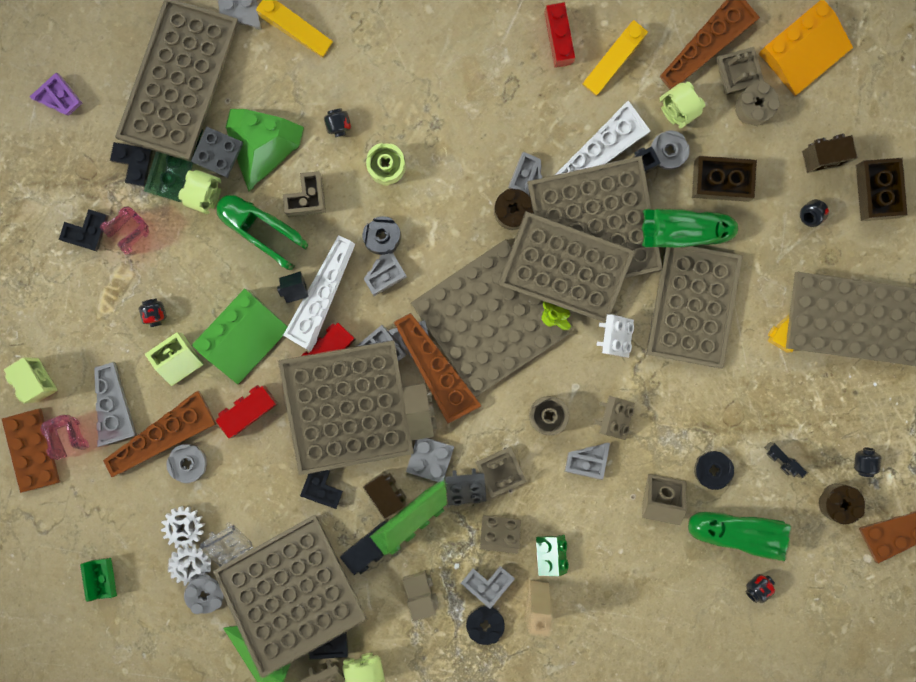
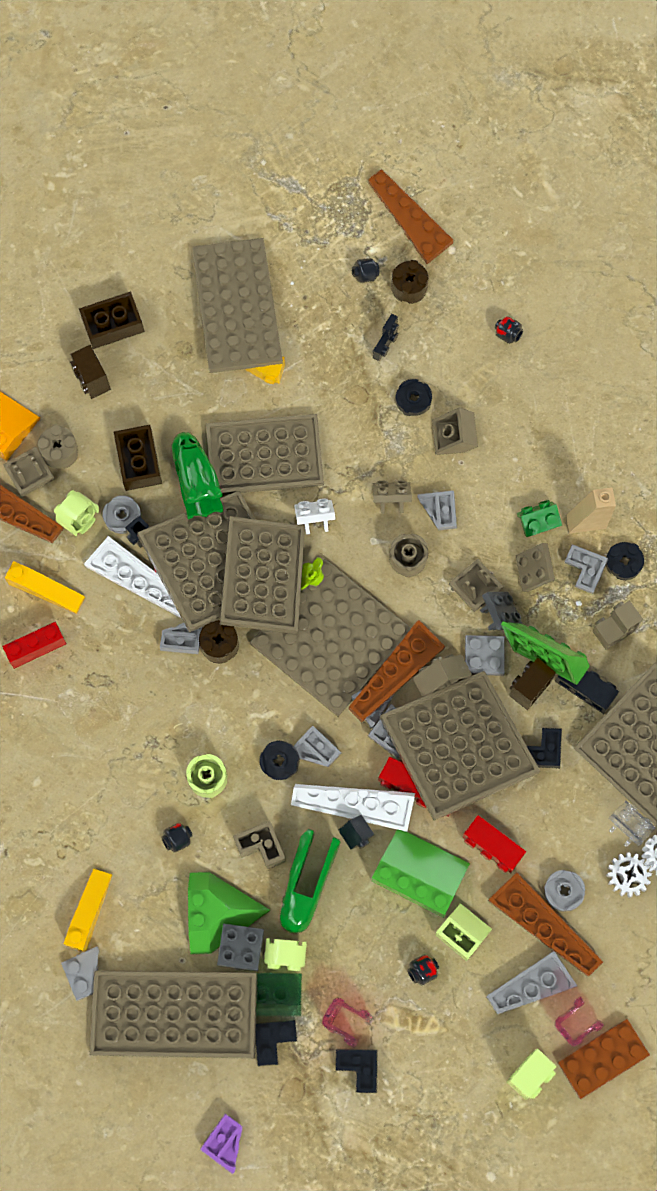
camera: 100 degrees left, 15 degrees down
(749, 534) = (462, 350): green piece -> none
(814, 213) = (149, 372): black head -> none

